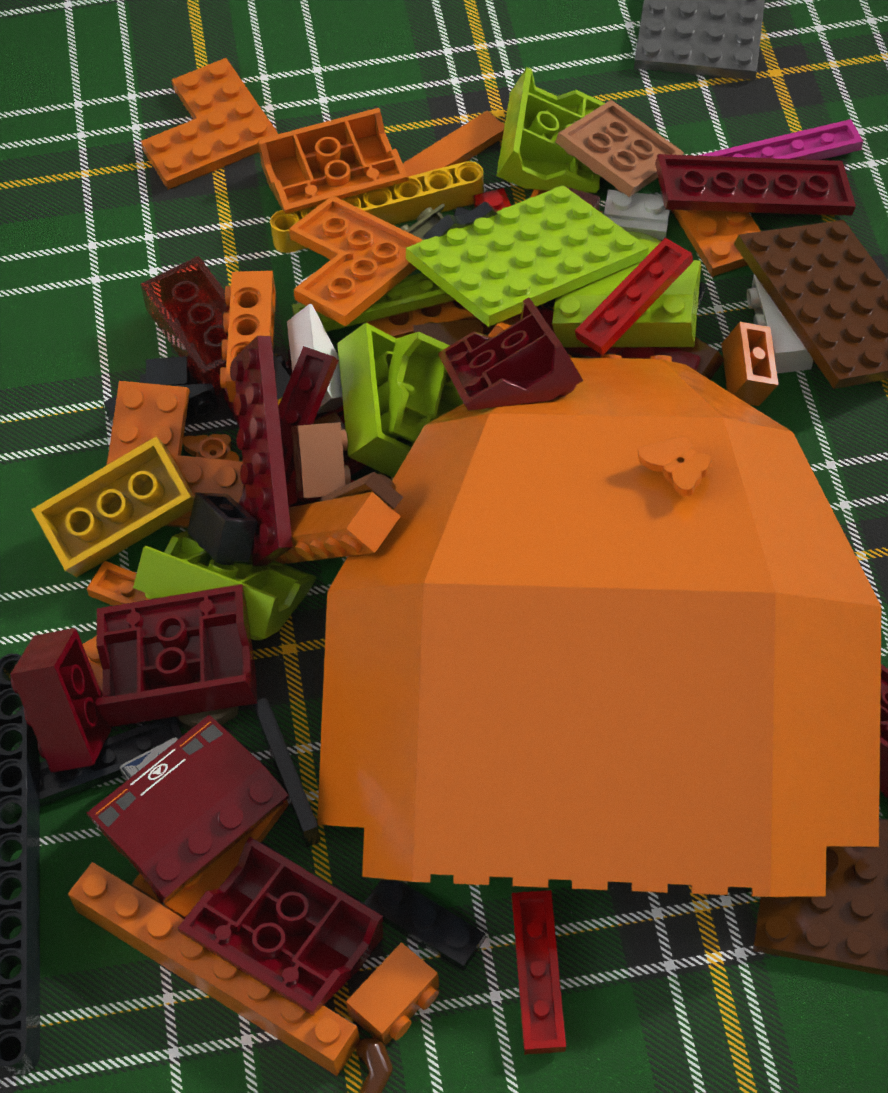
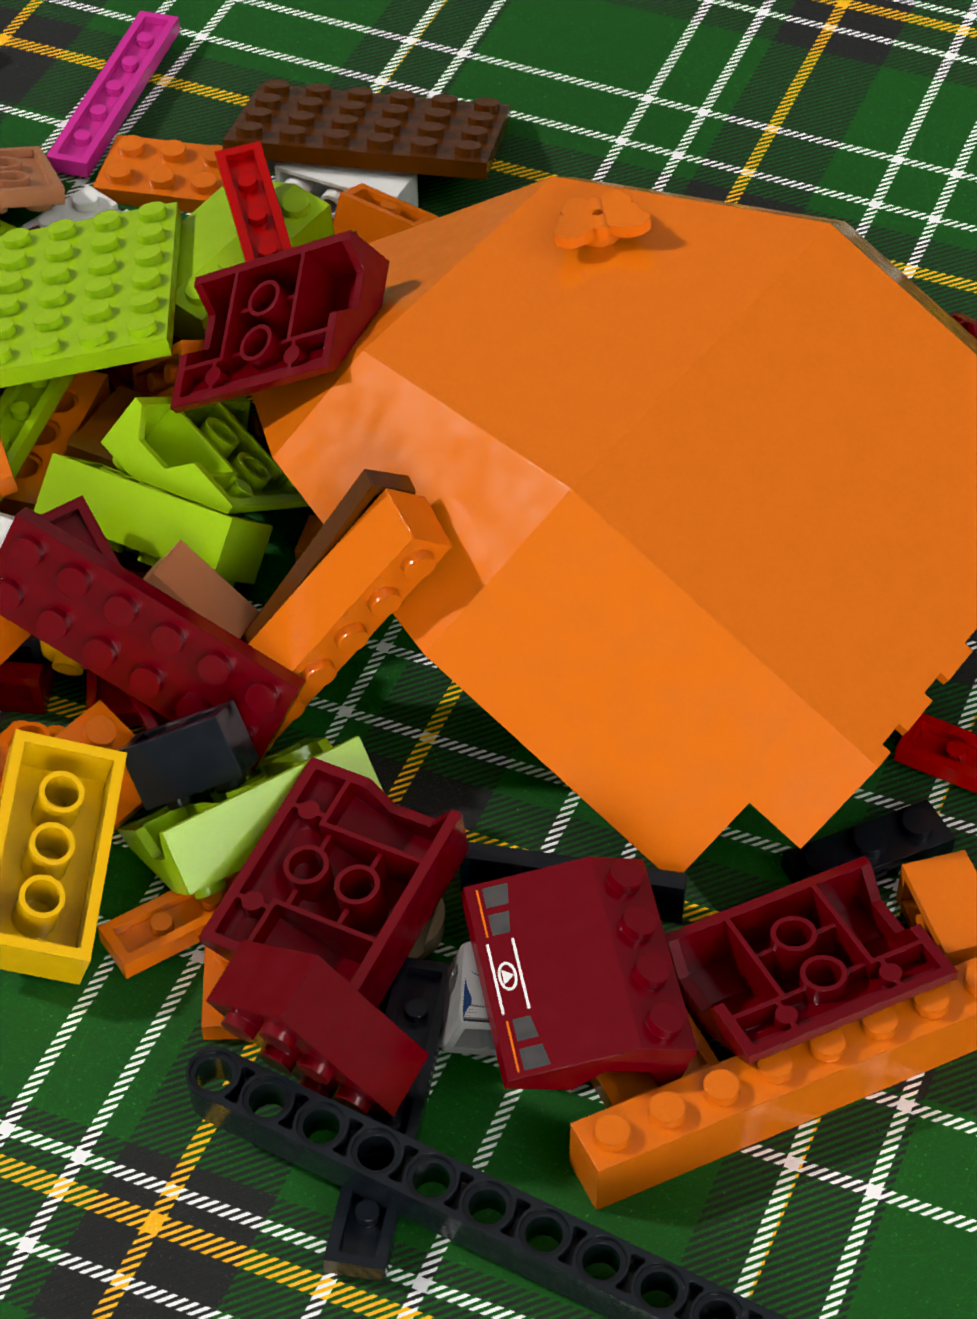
camera: 60 degrees left, 10 degrees down
(754, 185) = (151, 112): dark red plate -> none

